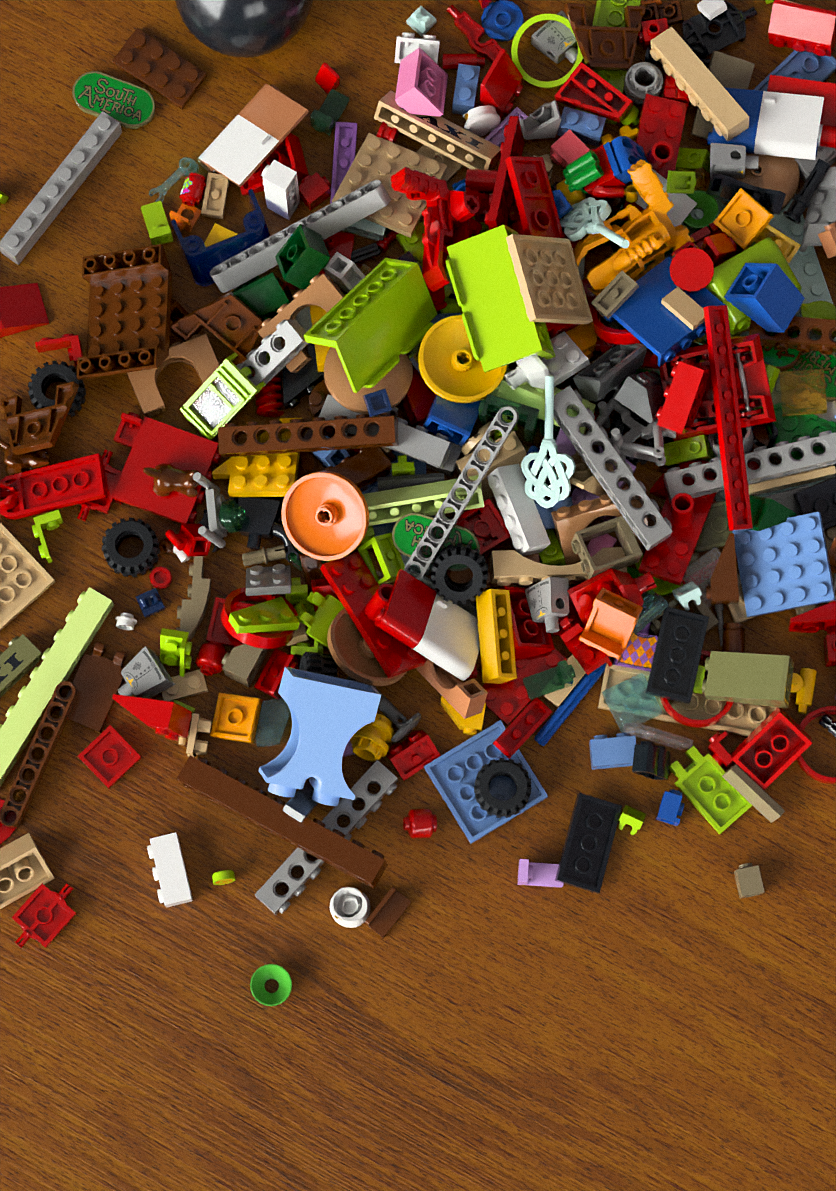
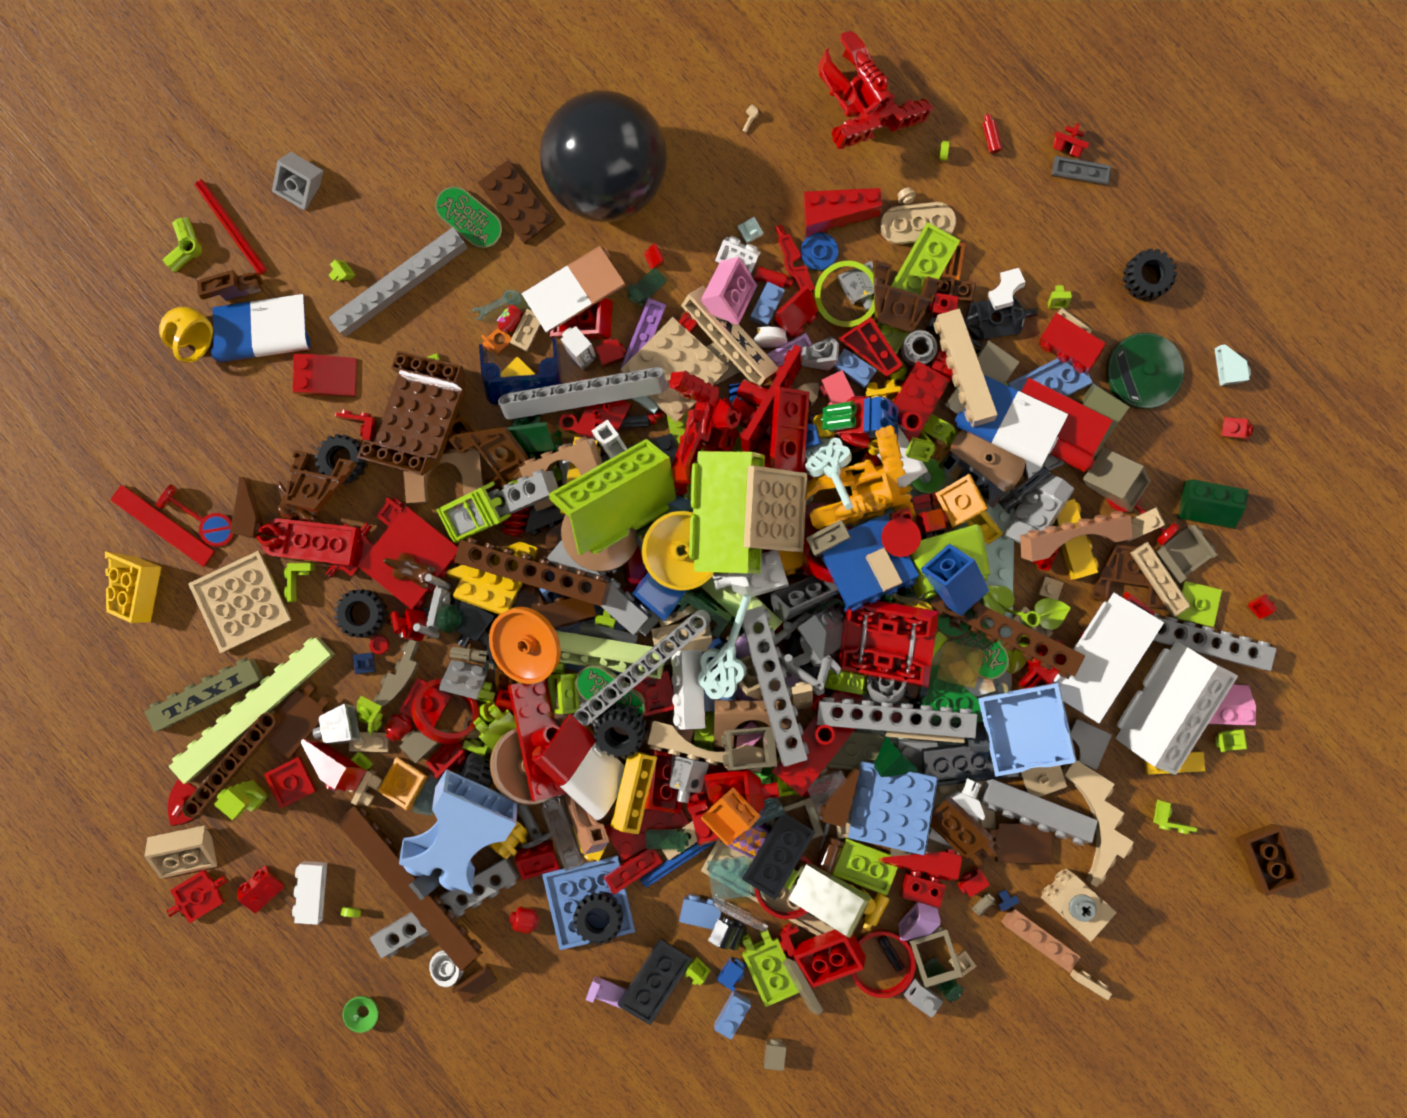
camera: 15 degrees right, 10 degrees up
(65, 778) = (241, 797): none -> lime arch
(112, 886) = (259, 889): none -> red bracket
(125, 621) = (338, 673): white plate -> none
(156, 223) = (470, 339): lime bracket -> none
(264, 617) = (446, 716): lime wing -> none
(302, 257) = (576, 415): dark green brick -> none
(377, 402) = (596, 568): dark blue tile -> none
(432, 711) = (562, 832): none -> clear slope
(645, 471) = (802, 695): none -> tan tile
(683, 396) = (856, 645): brick -> none
(686, 851) = (732, 1014): none -> medium blue brick
(687, 593) = (804, 805): light aqua tile -> none
(728, 417) = (887, 675): red plate -> none
(731, 160) = (961, 442): light grey torso -> none
(775, 639) = (861, 866): none -> lime plate

